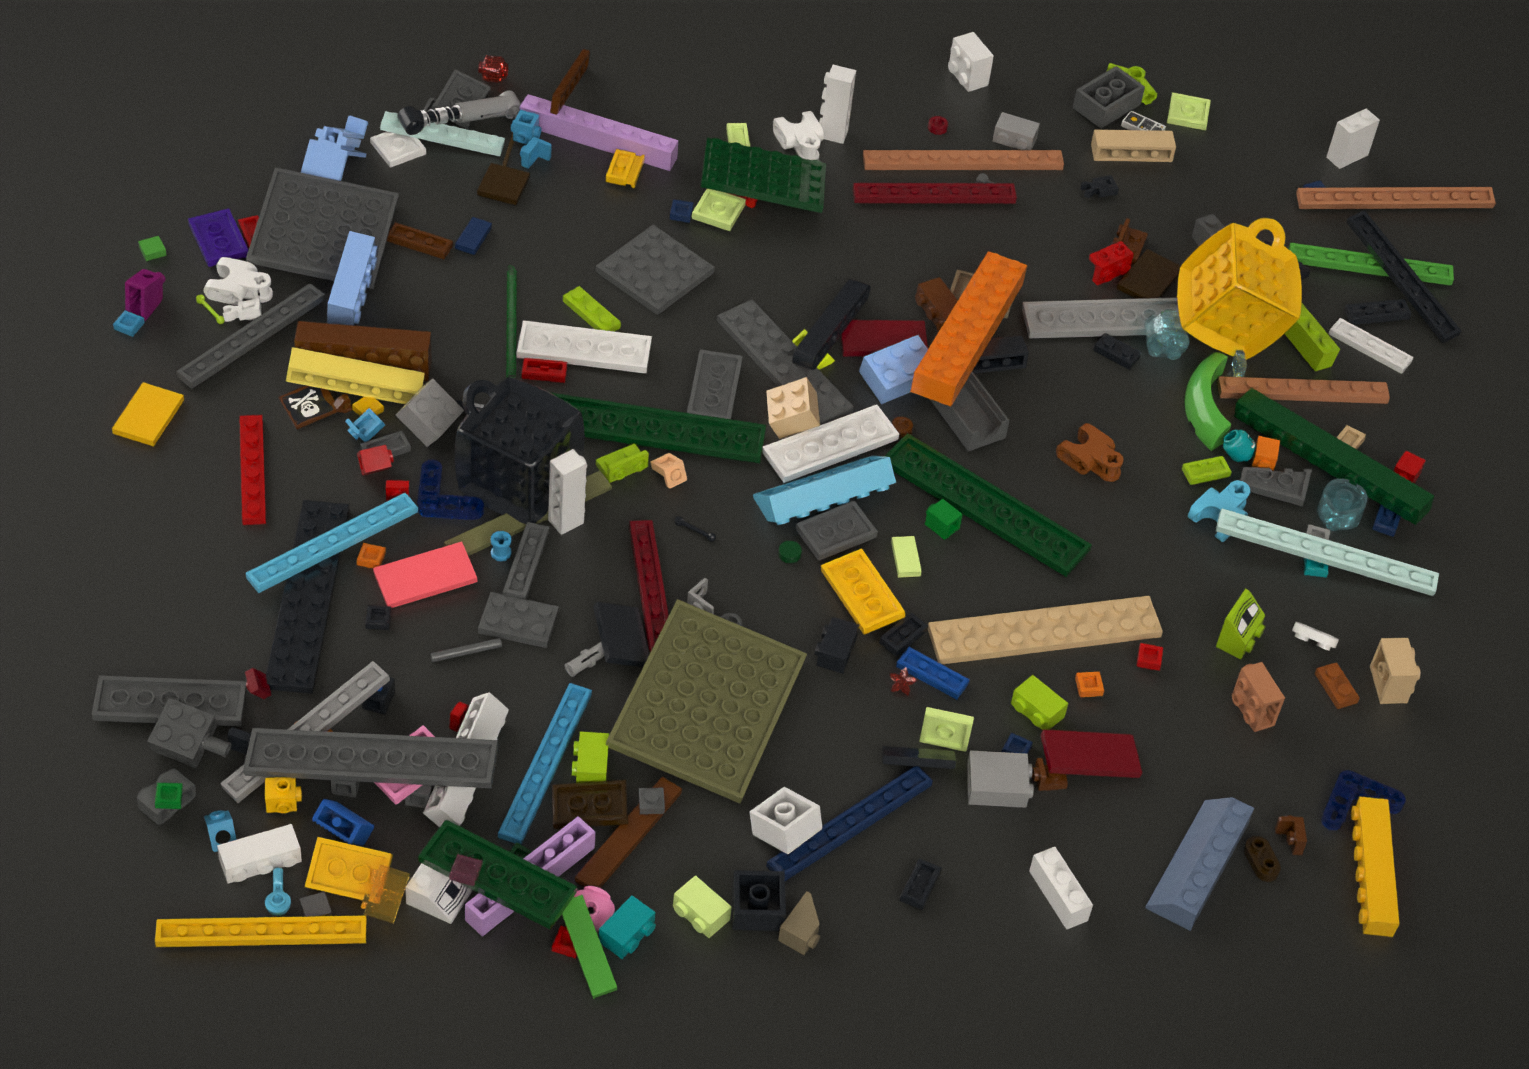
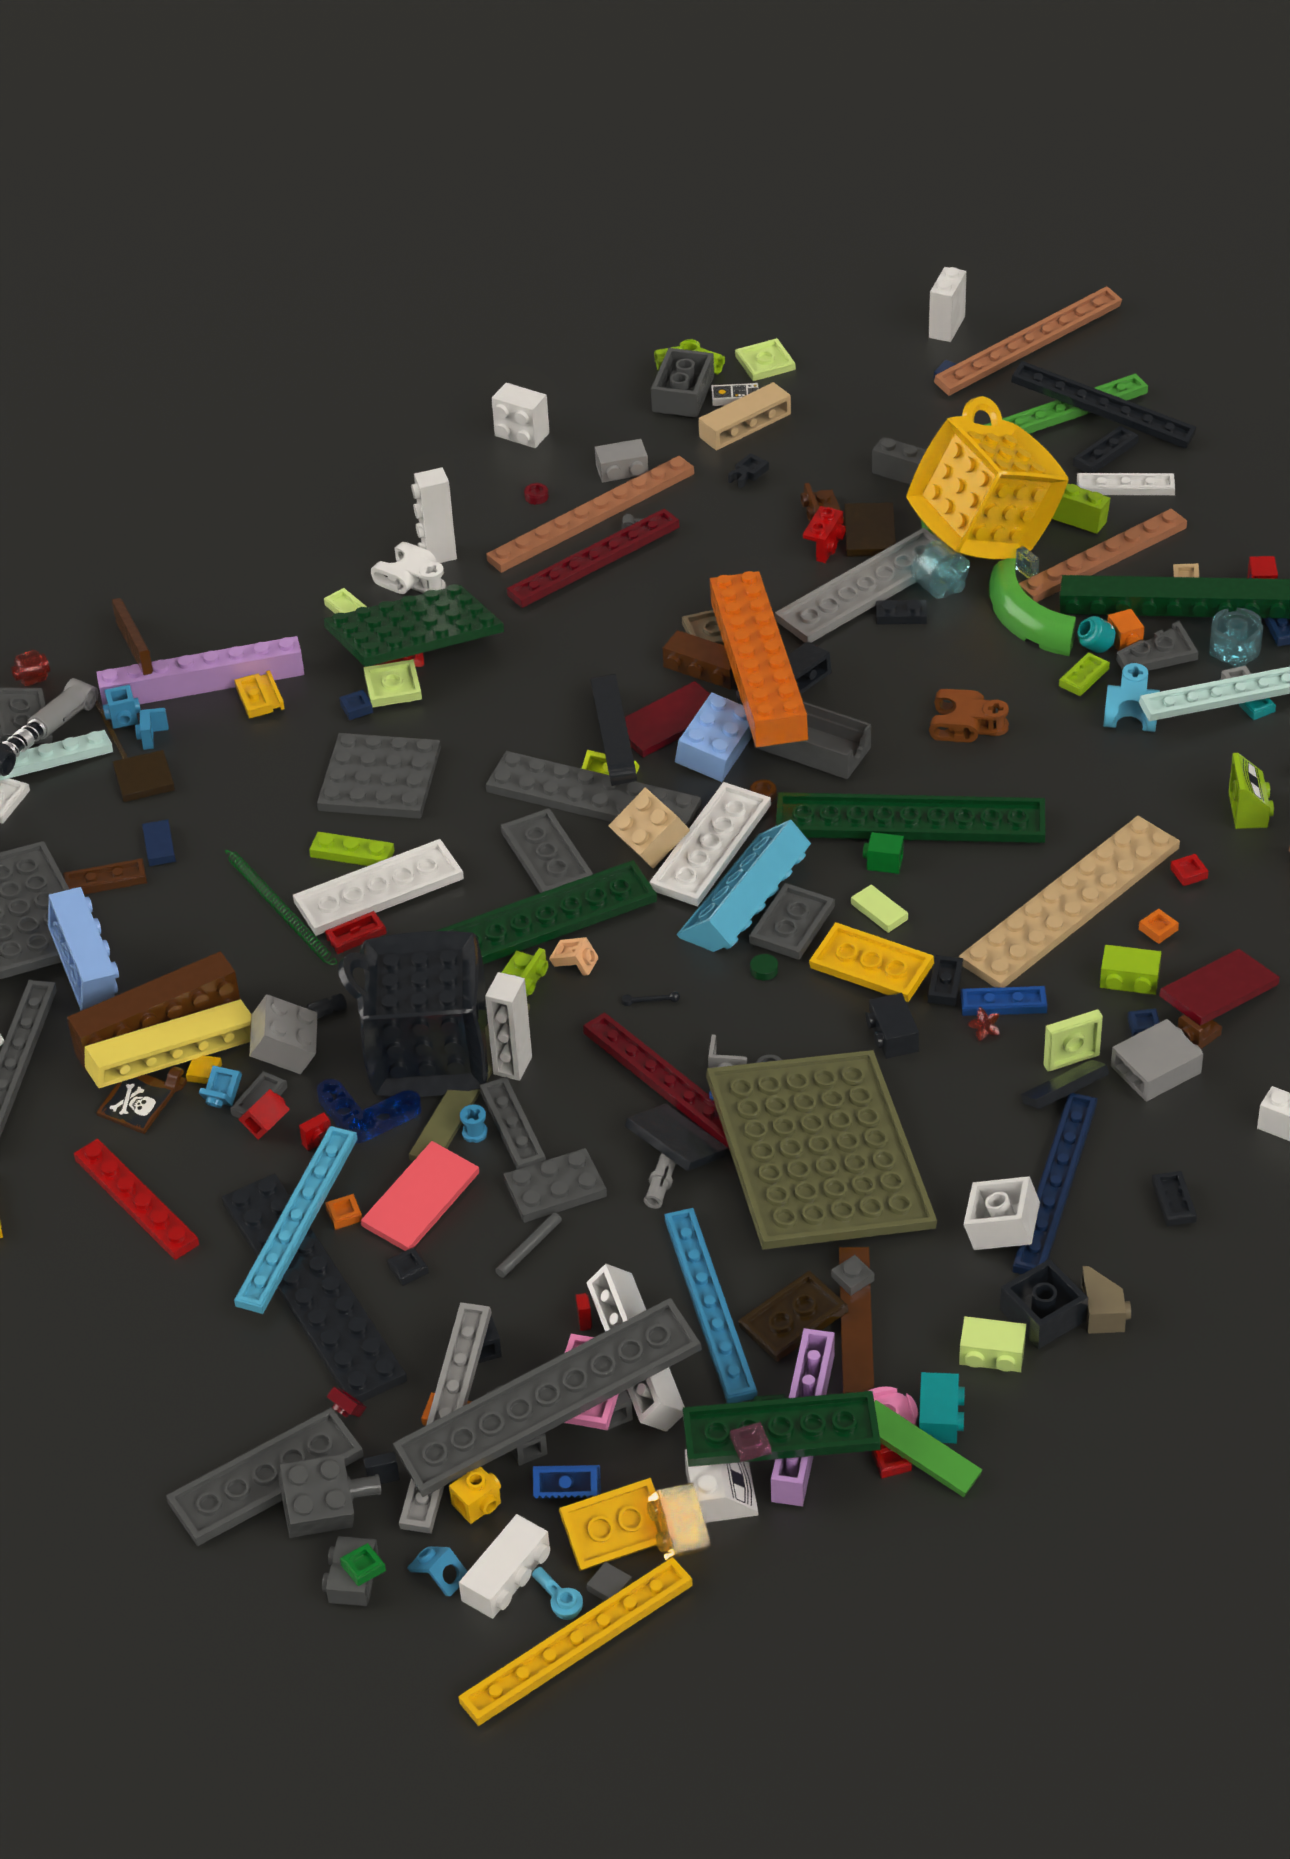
camera: 25 degrees left, 5 degrees down
(592, 757) = (755, 1270): lime brick -> none

